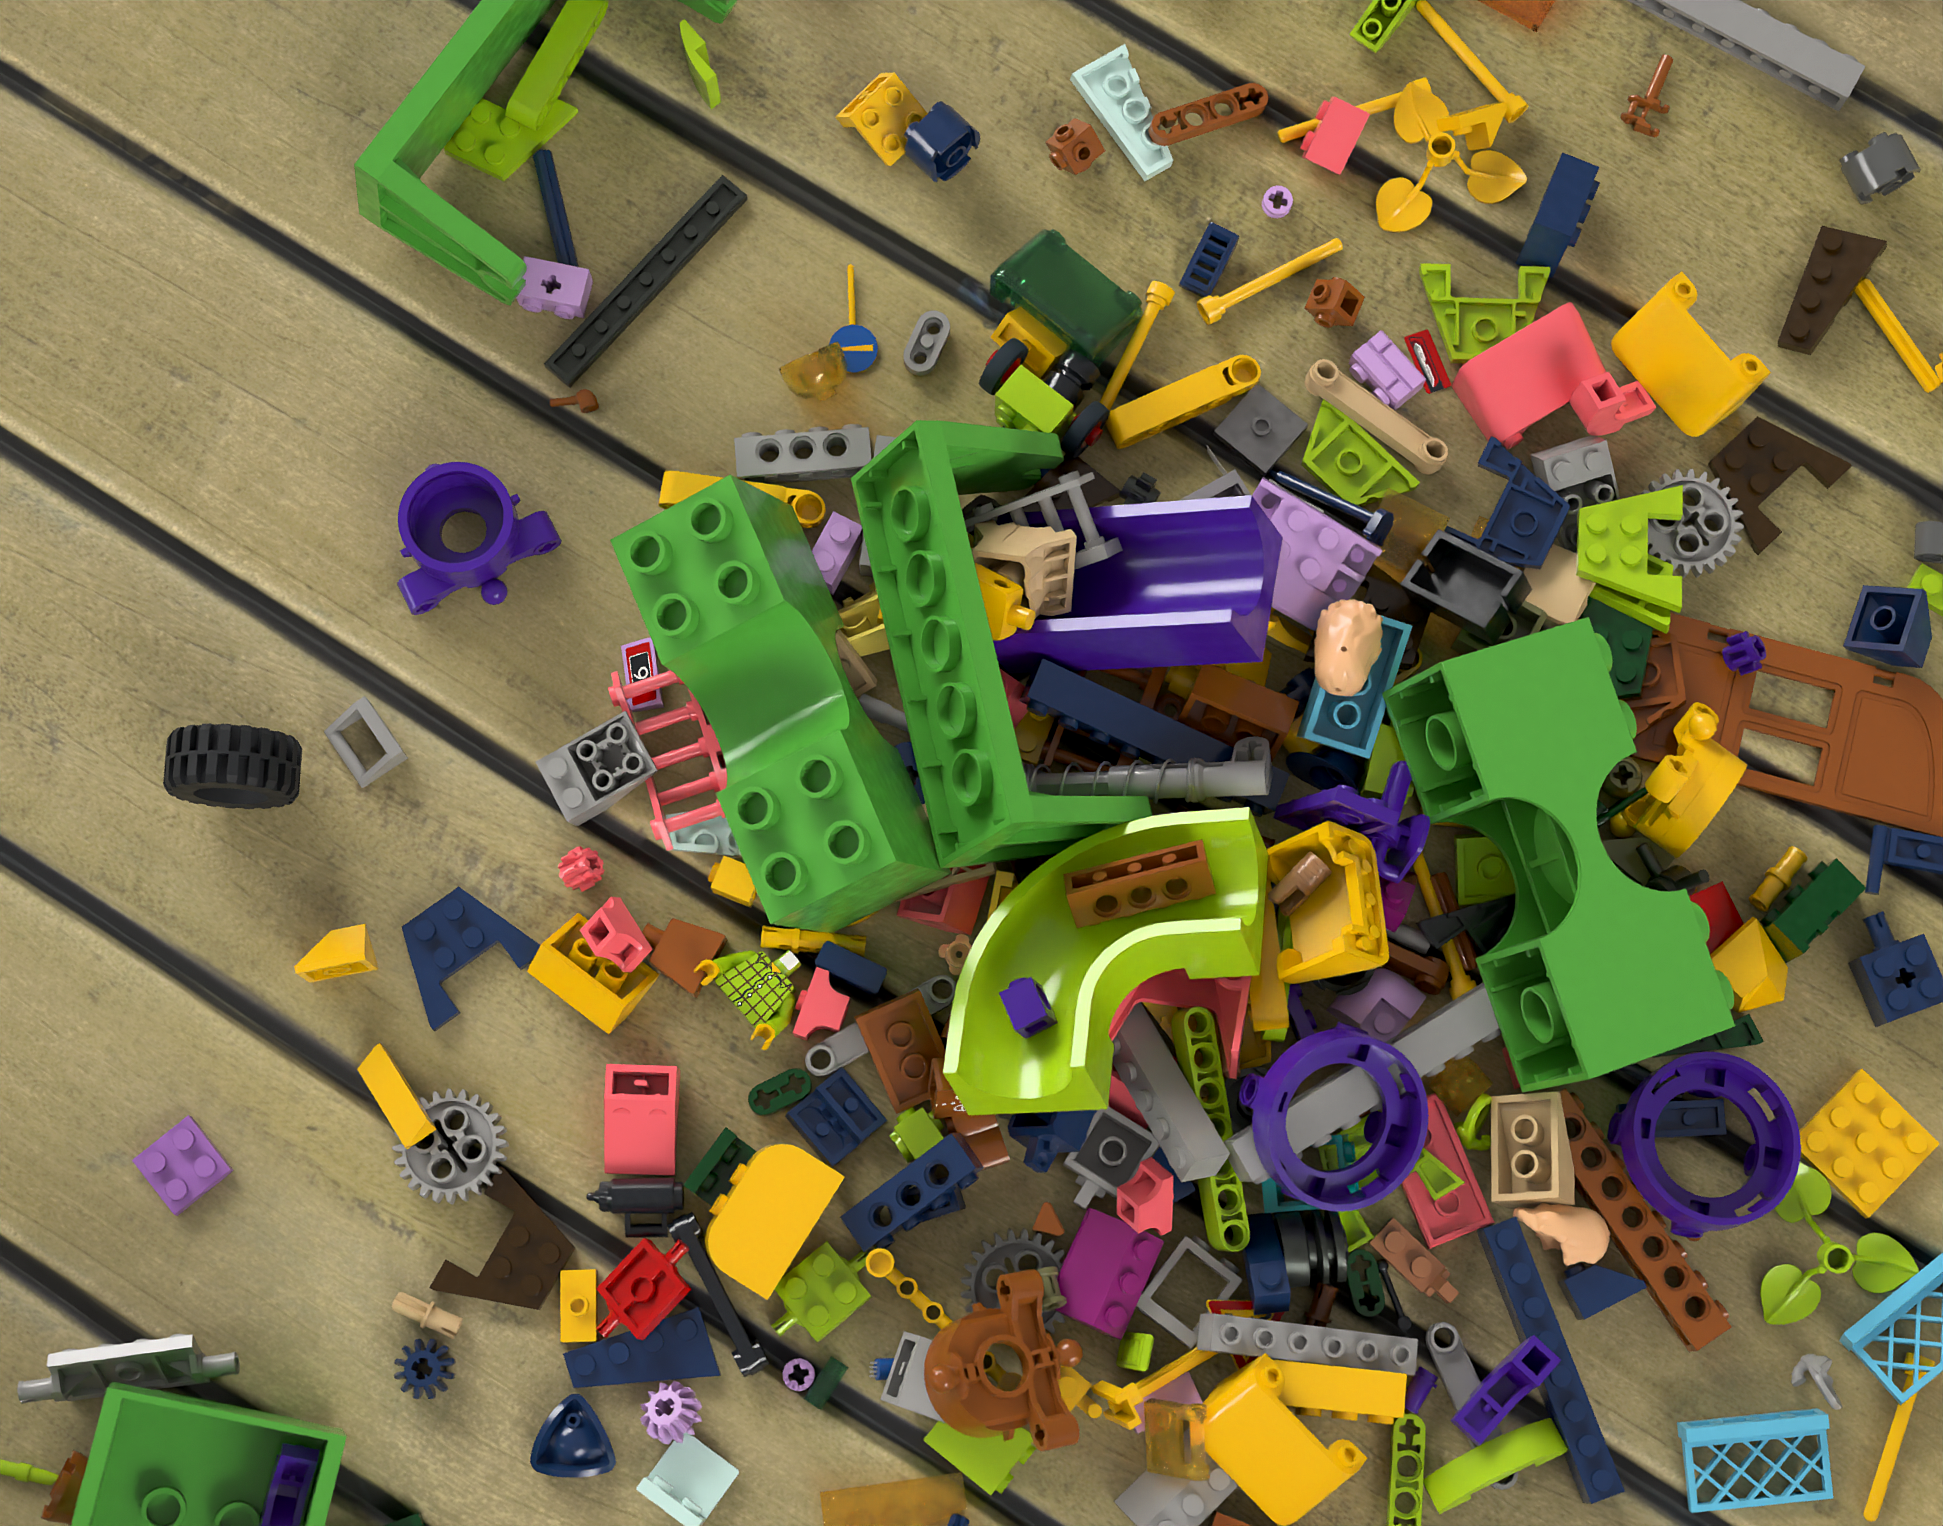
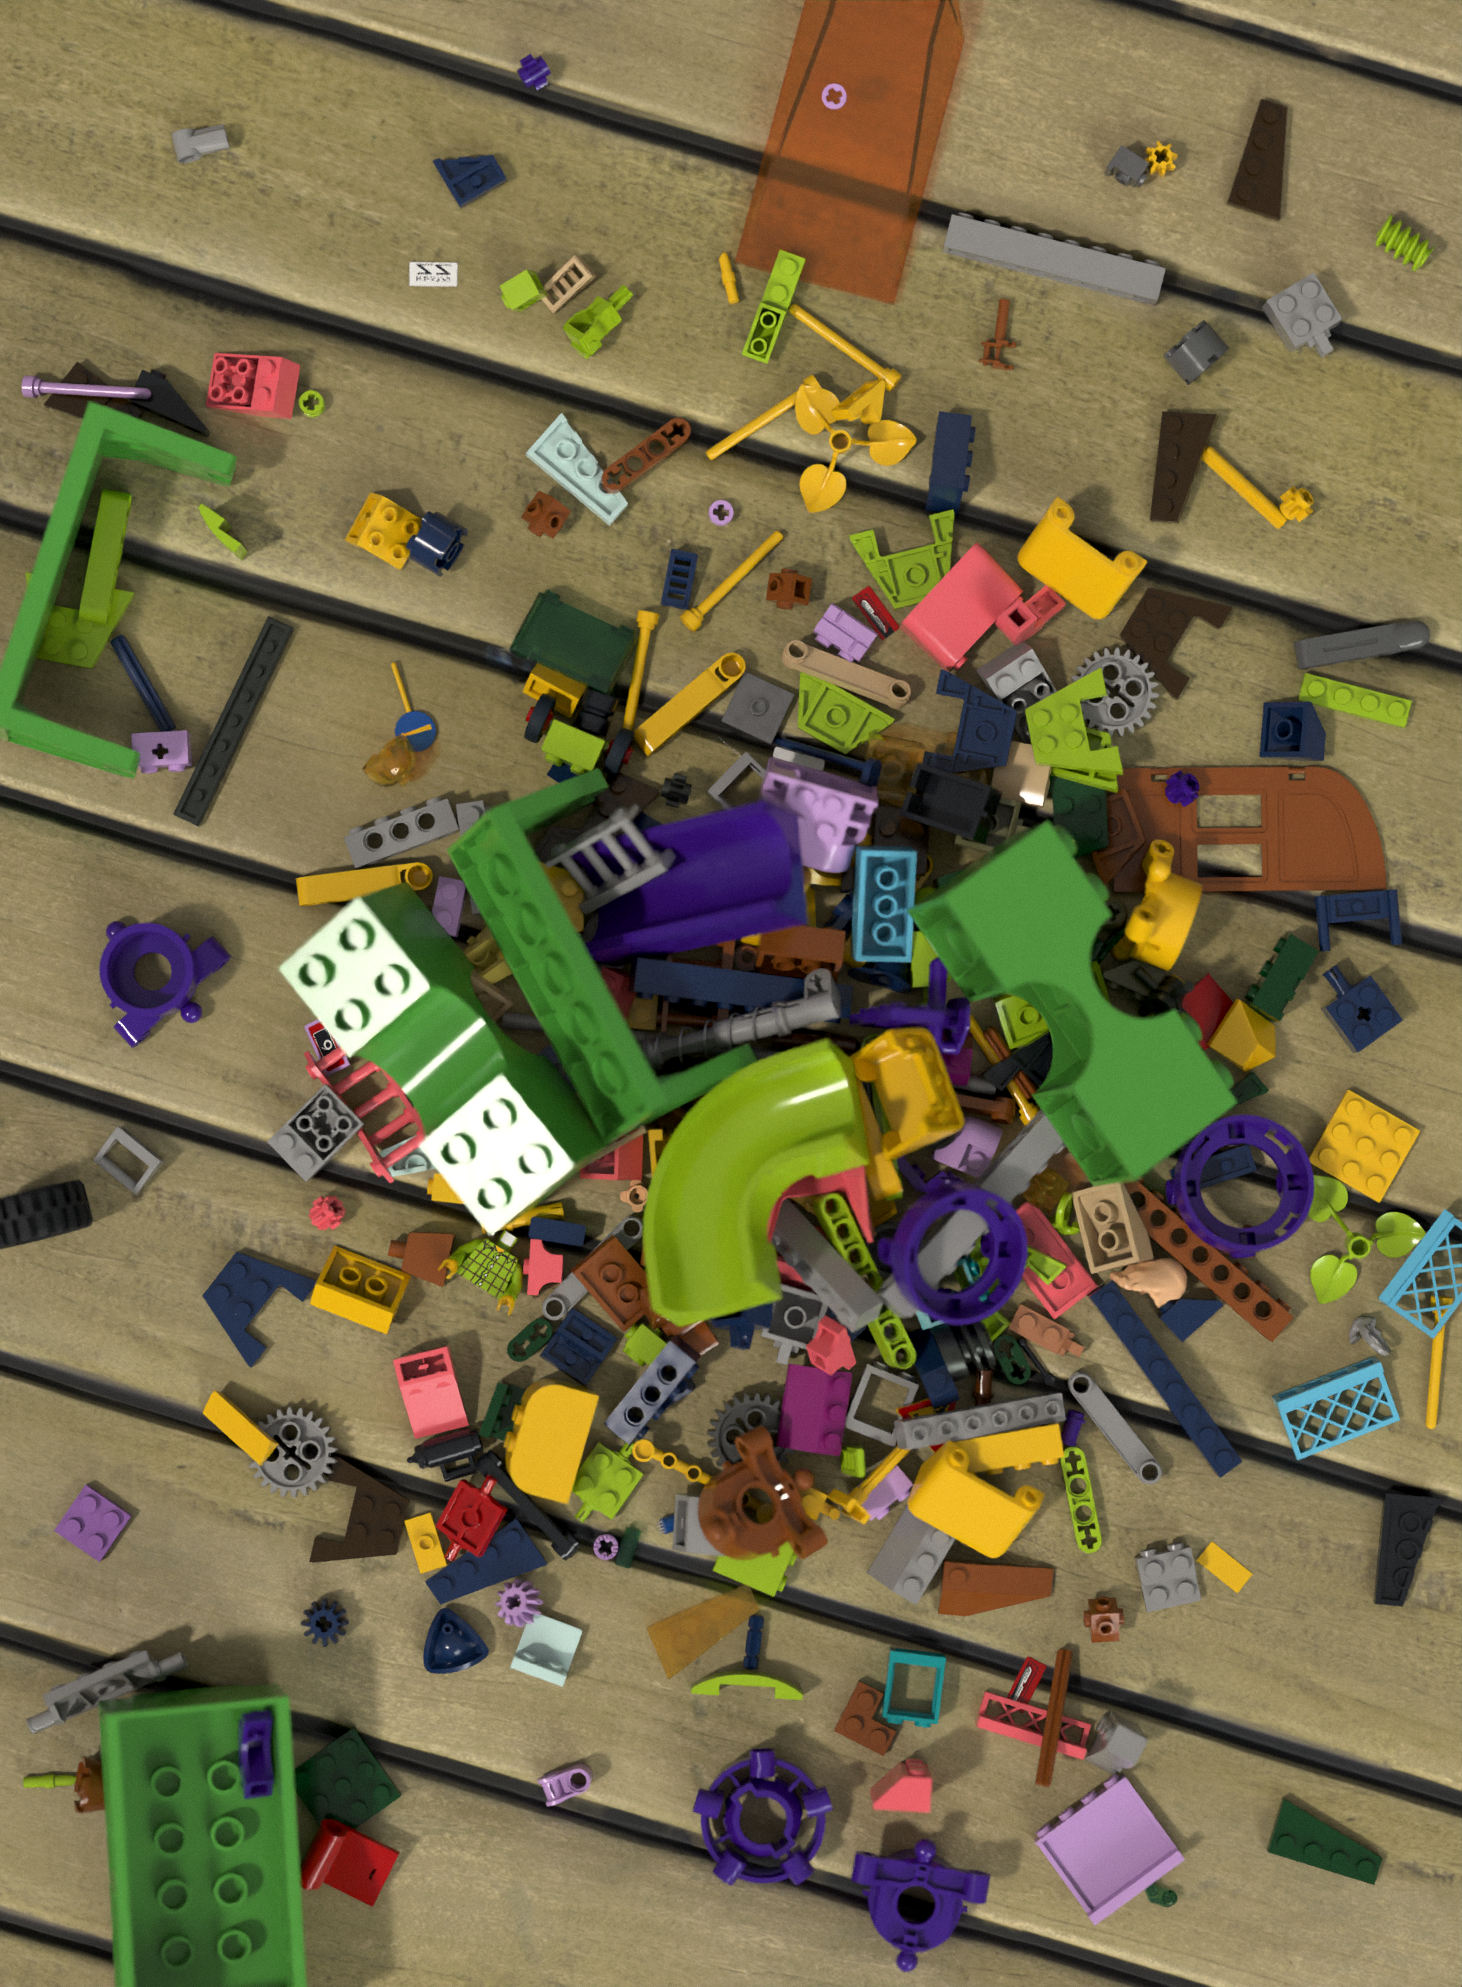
camera: 20 degrees left, 10 degrees up
(338, 955) = (162, 1330): yellow slope -> none
(427, 1314) = (314, 1581): tan axle -> none
(585, 398) = (216, 835): dark orange hand -> none
(616, 935) = (369, 1257): coral brick -> none
(925, 344) = (472, 712): light grey plate -> none
(1003, 604) = (594, 930): yellow torso -> none
(1027, 1007) = (701, 1237): dark purple brick -> none
(1033, 558) = (602, 894): tan slope -> none
(1048, 1222) = (761, 1381): dark orange slope -> none
(1052, 1296) = (778, 1437): olive bush -> none
(1165, 878) = (760, 1118): dark orange brick -> none
(1166, 1439) = (893, 1521): clear yellow plate -> none
(1299, 883) = (882, 1077): medium nougat hinge -> none
(1334, 135) = (752, 447): coral brick -> none
(1346, 646) = (872, 873): light nougat piece -> none
(1492, 1462) = (1141, 1465): lime slope -> none
(1504, 1387) = (1133, 1413): dark purple arch -> none
(1778, 878) = (1250, 959): yellow pin -> none

